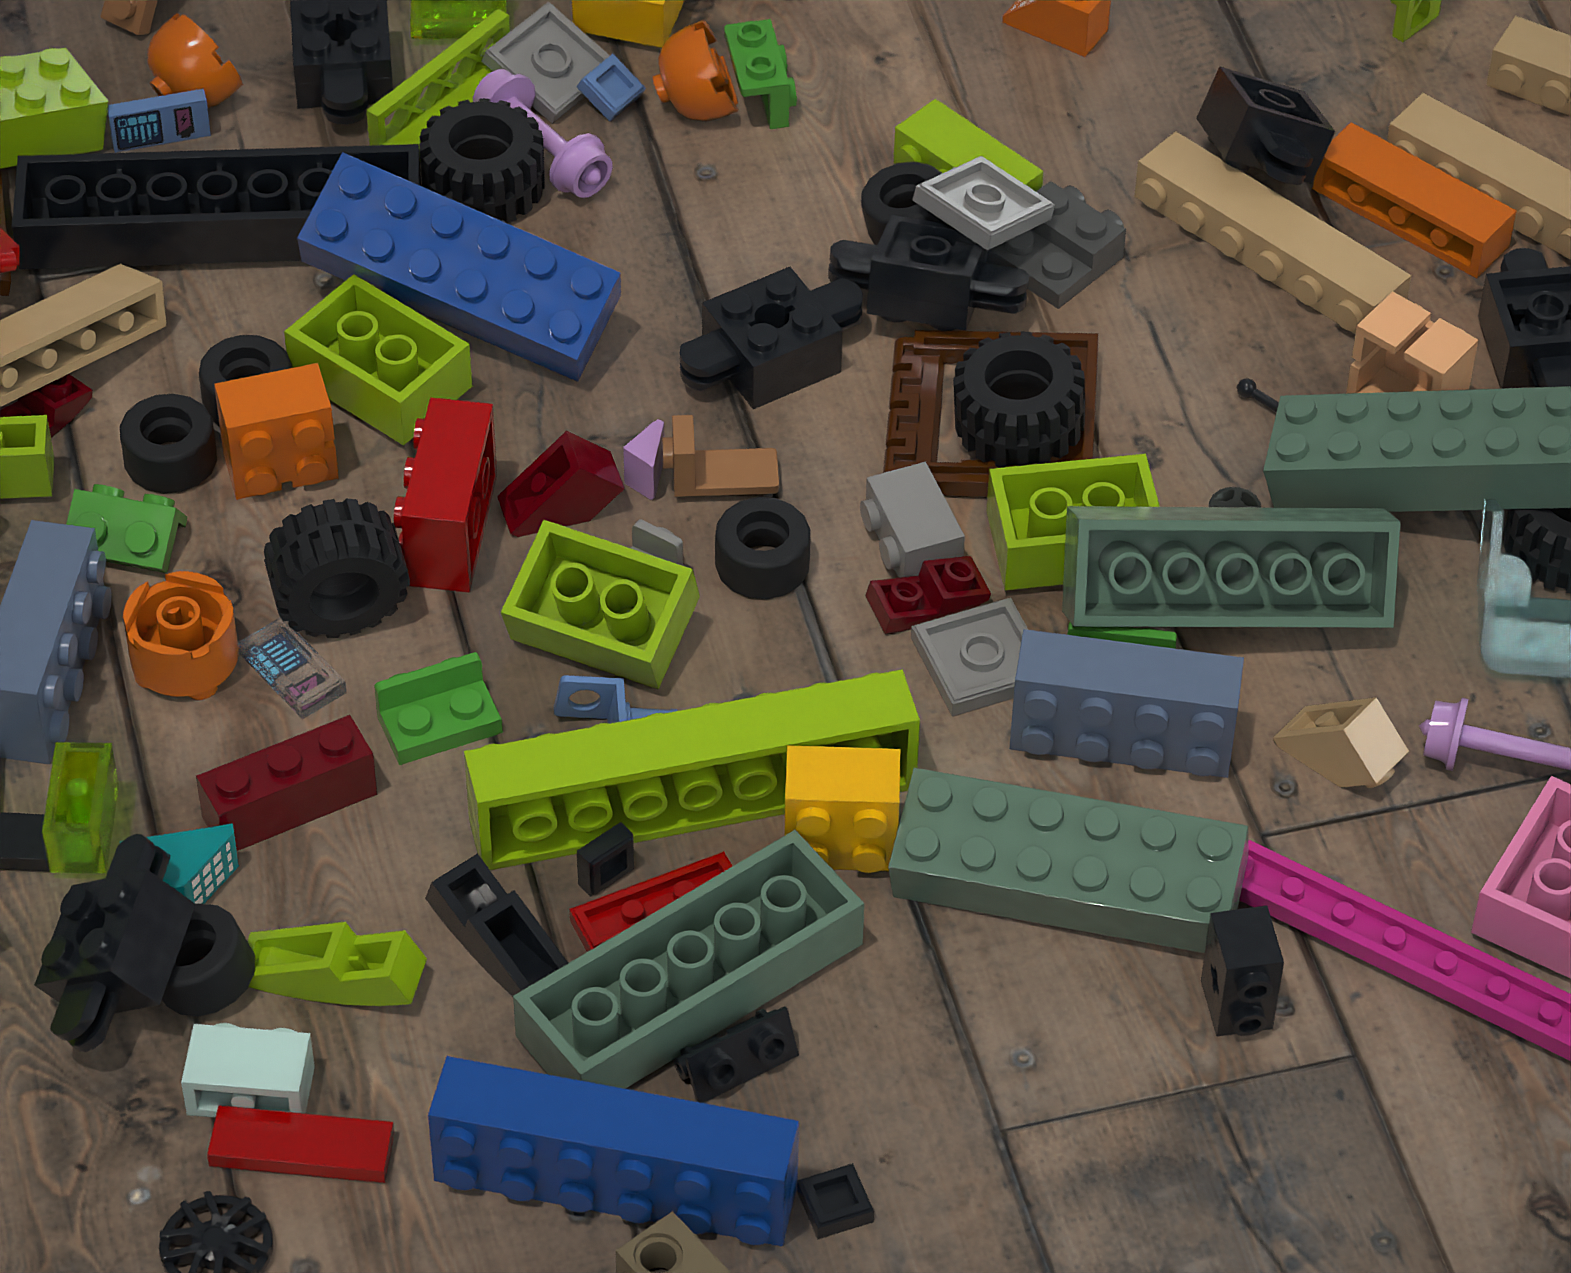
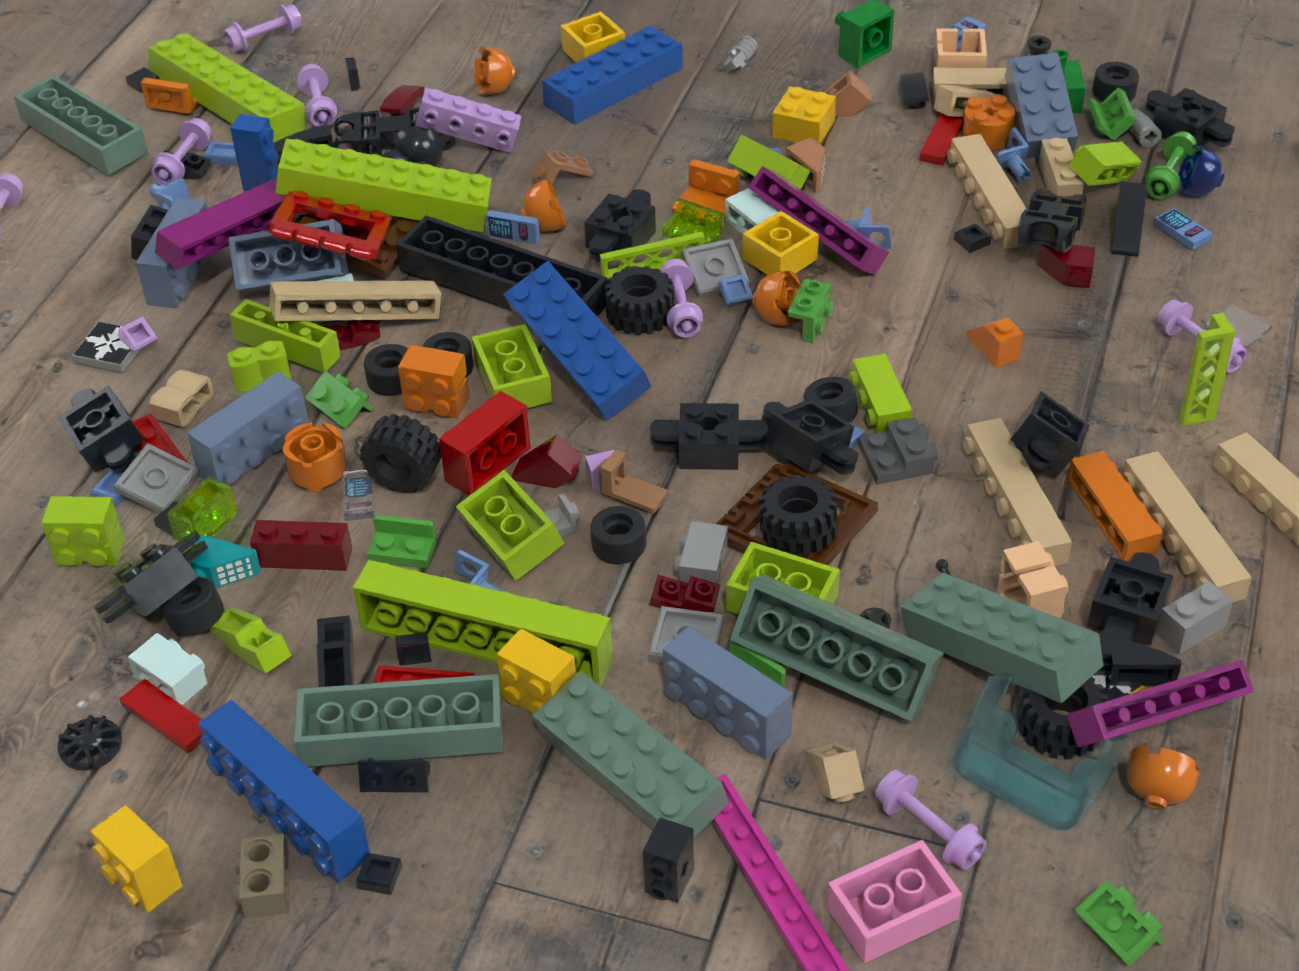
camera: 35 degrees right, 5 degrees down
(983, 202) = (860, 411): light grey tile -> none

